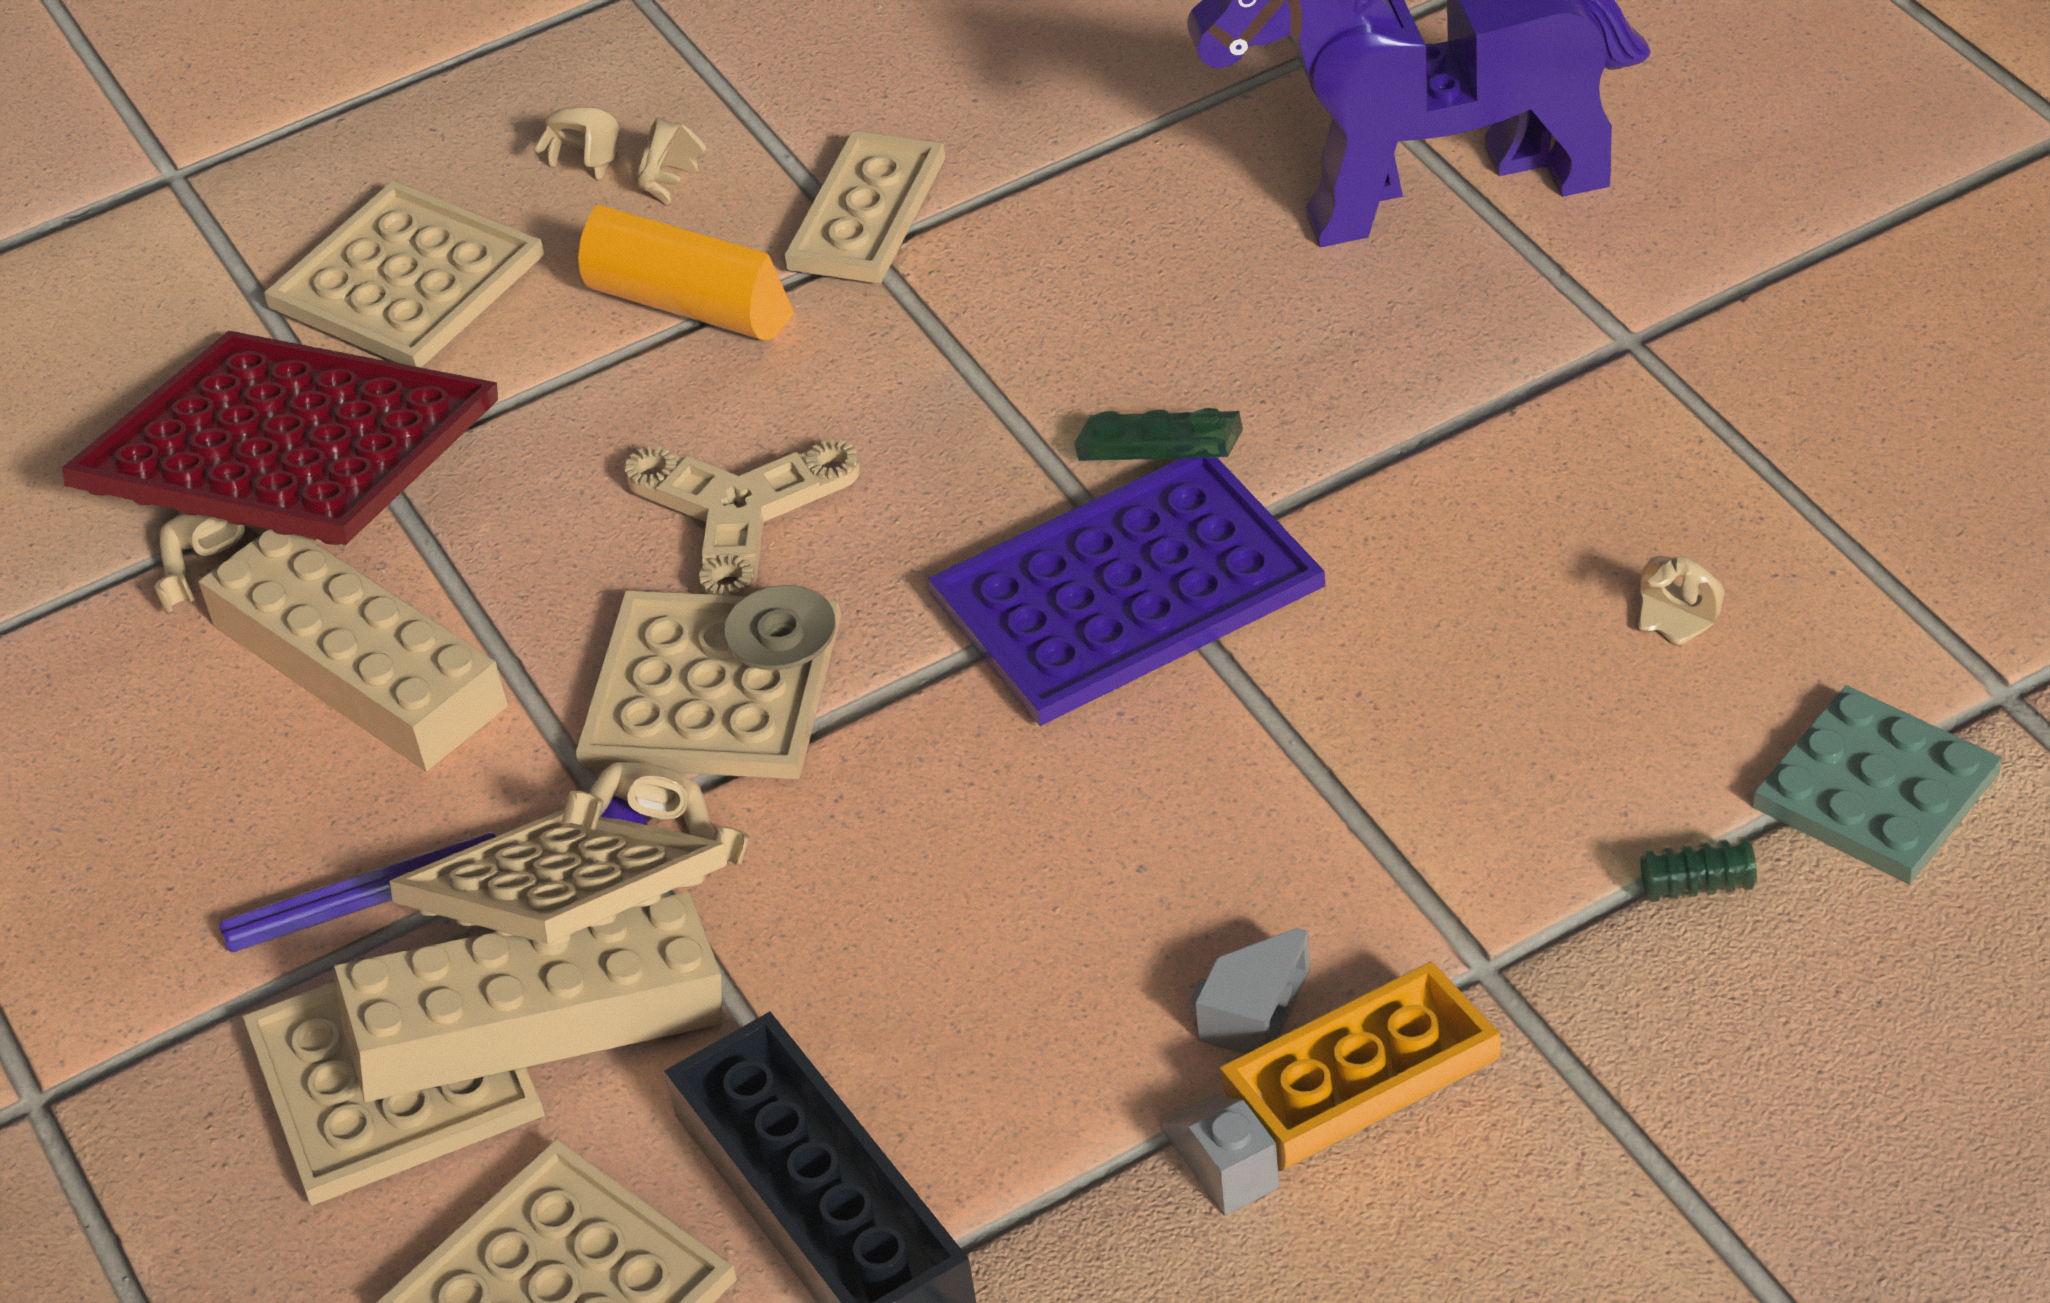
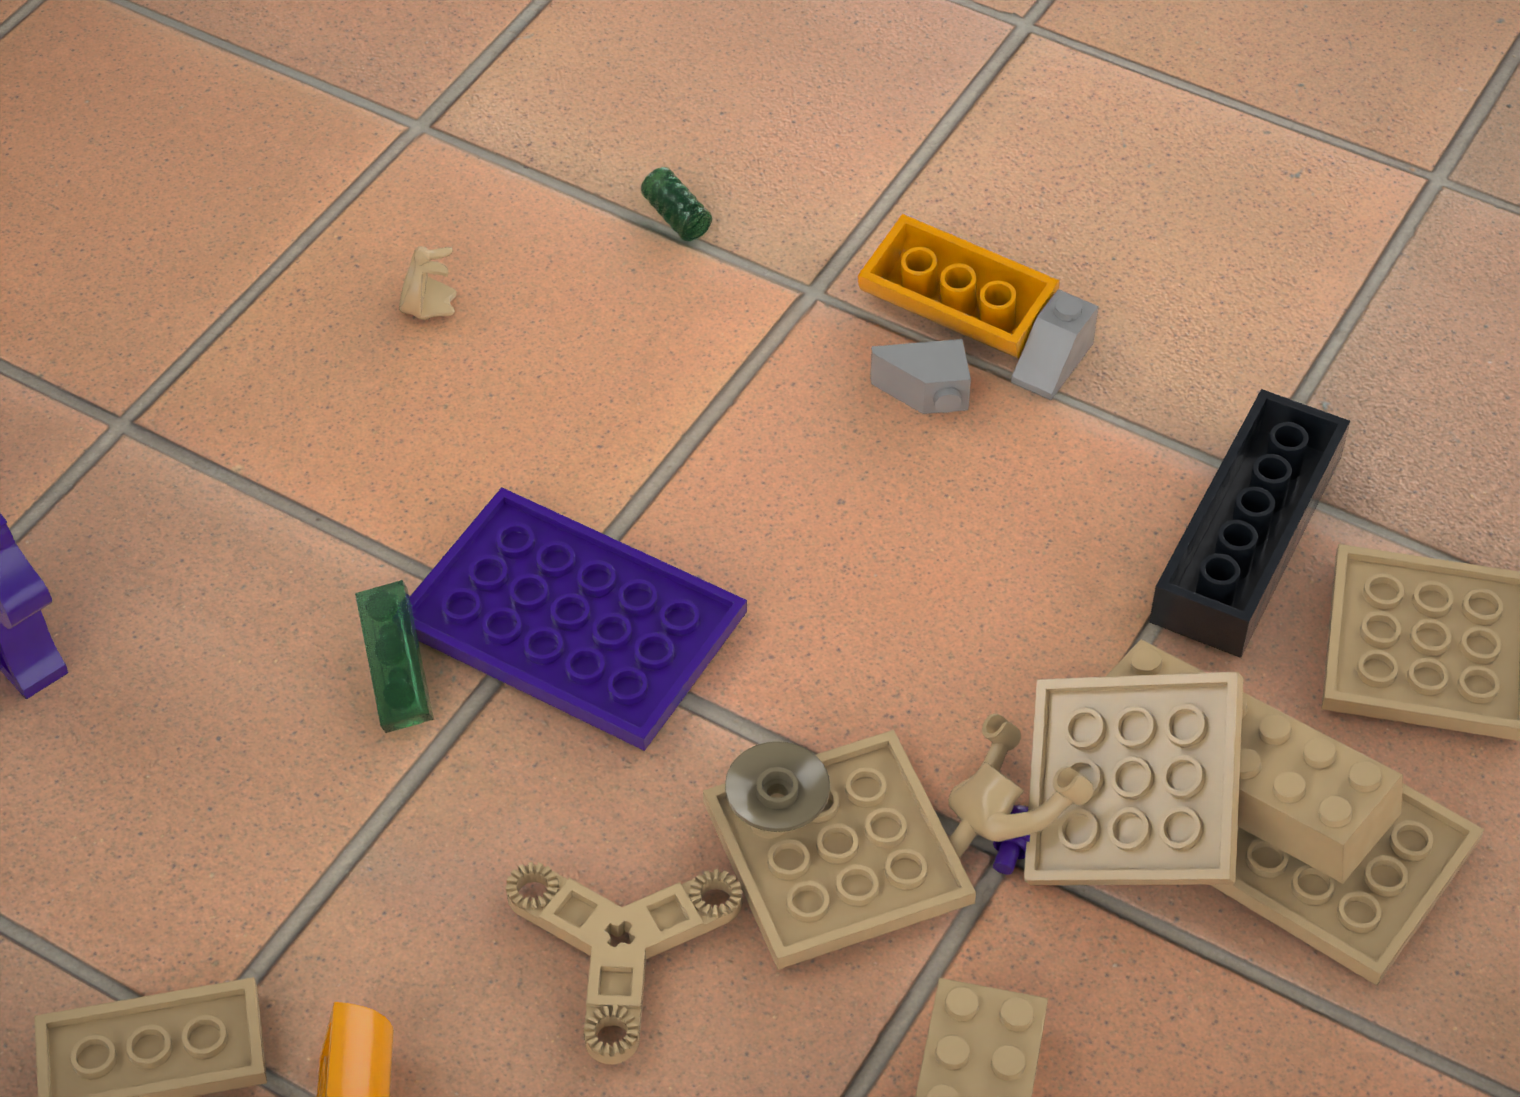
camera: 125 degrees left, 5 degrees up
(328, 901) = (1202, 986): dark purple axle -> none
(1877, 783) = (540, 155): sand green plate -> none

